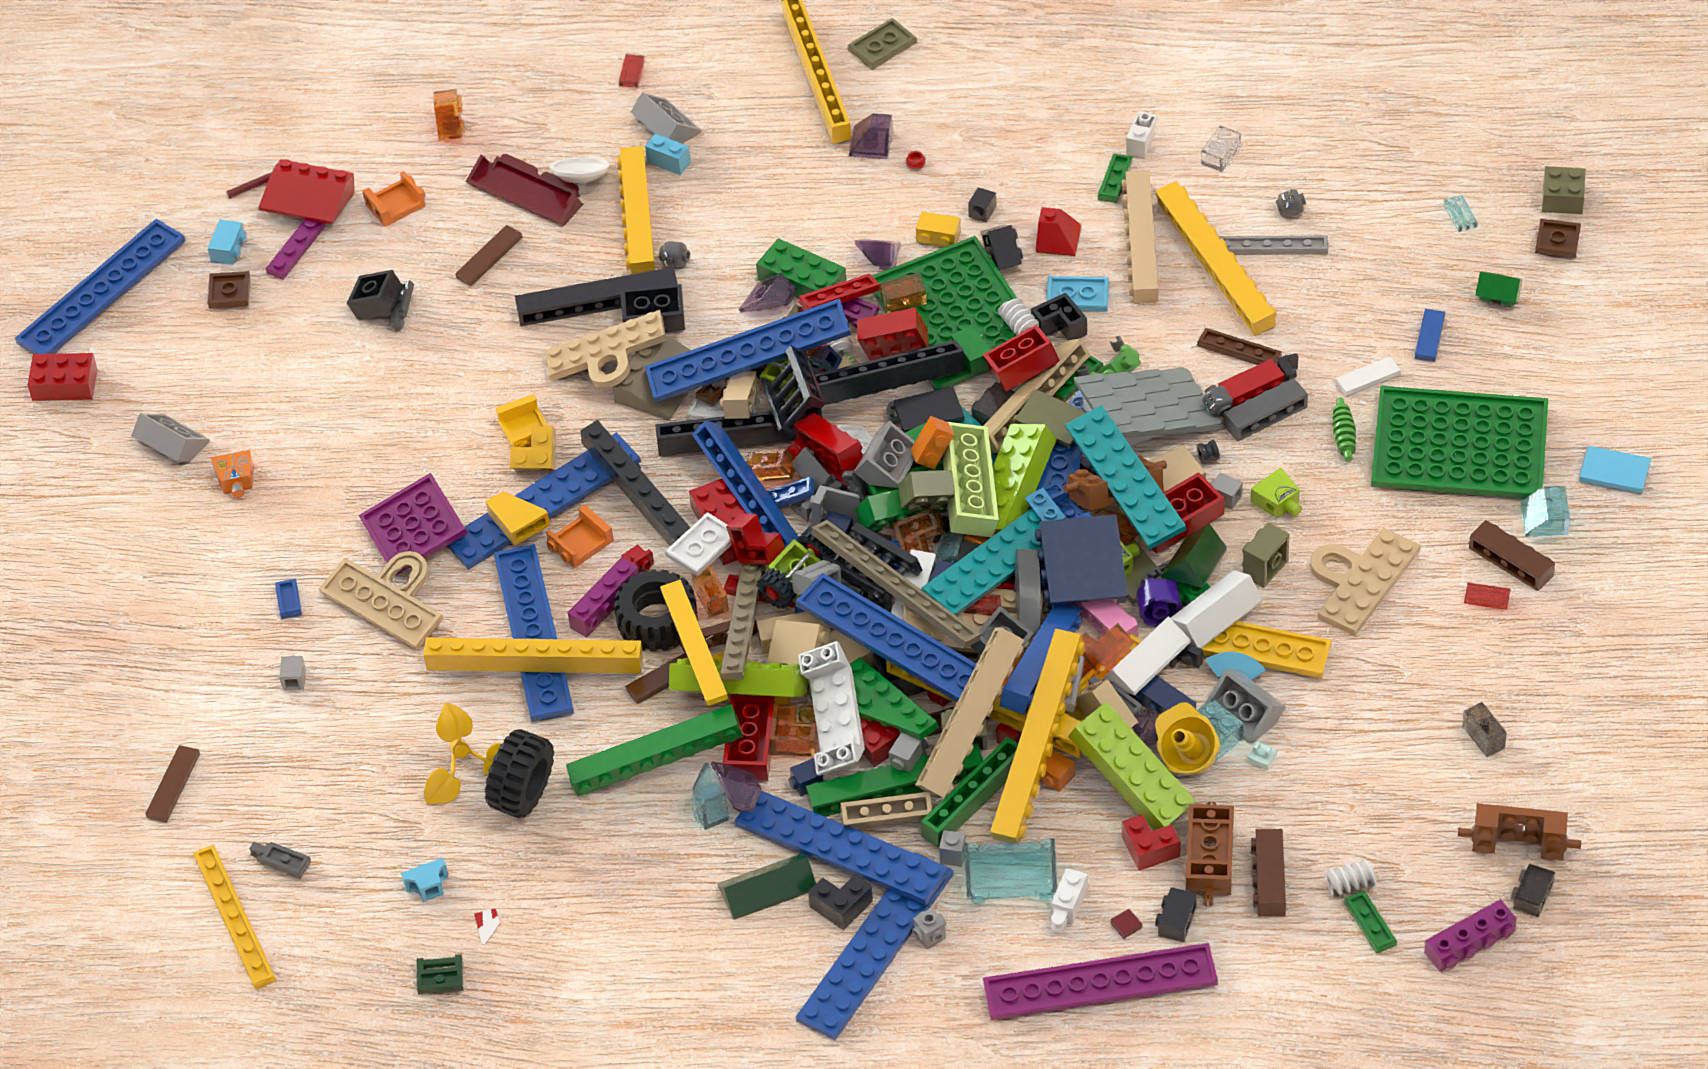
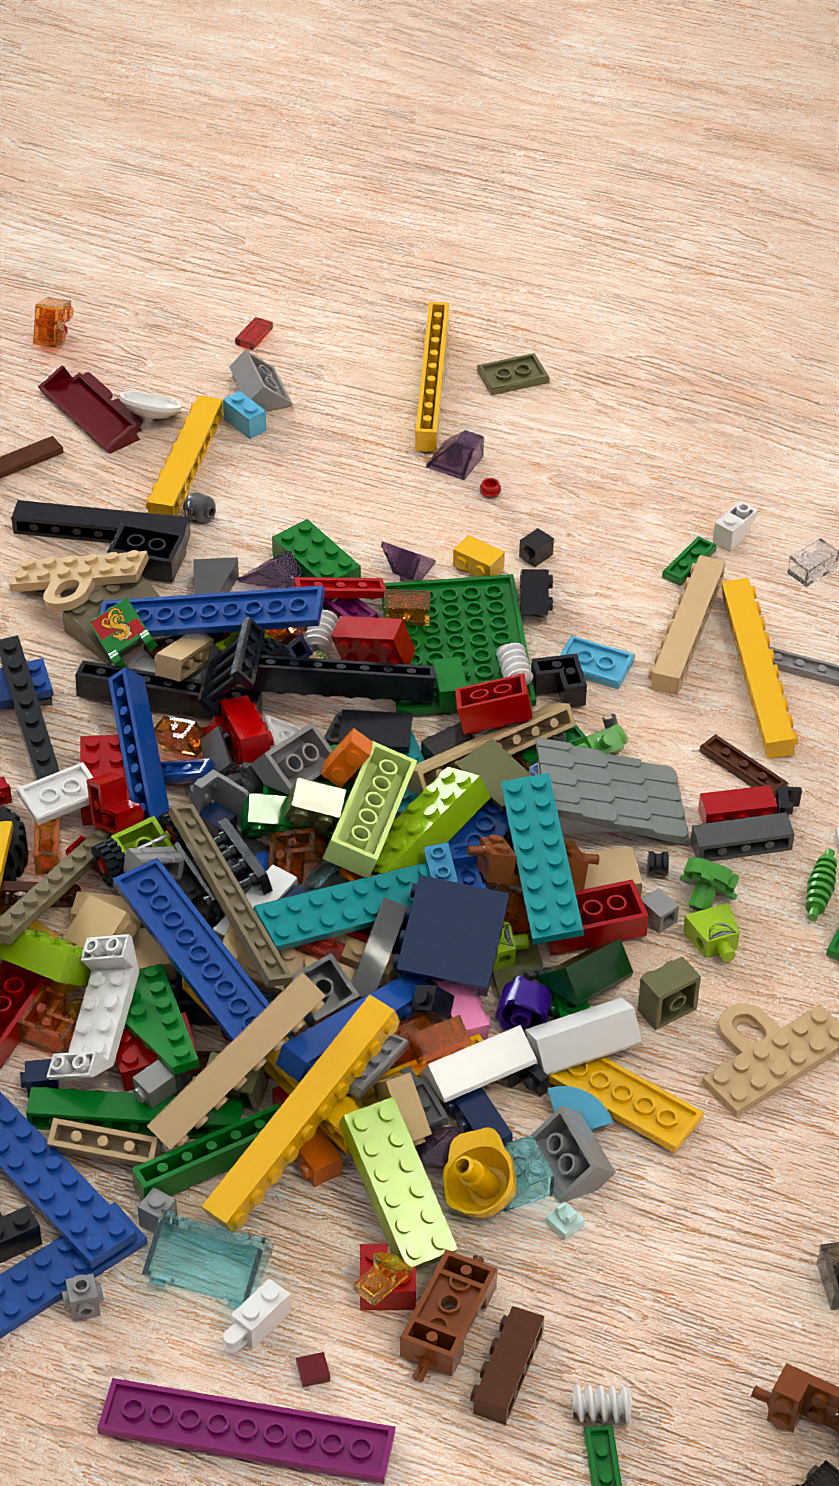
camera: 15 degrees right, 5 degrees down
(676, 387) = (120, 629): none -> flag
(720, 316) = (215, 575): none -> dark grey slope
(1057, 232) = (601, 595): red slope -> none
(1088, 620) = (432, 1002): none -> black brick
(1153, 839) = (383, 1277): none -> clear yellow slope
(1176, 914) = (375, 1378): black brick -> none
(1217, 400) = (690, 810): dark grey head -> none
(1257, 453) = (709, 881): none -> bright green piece

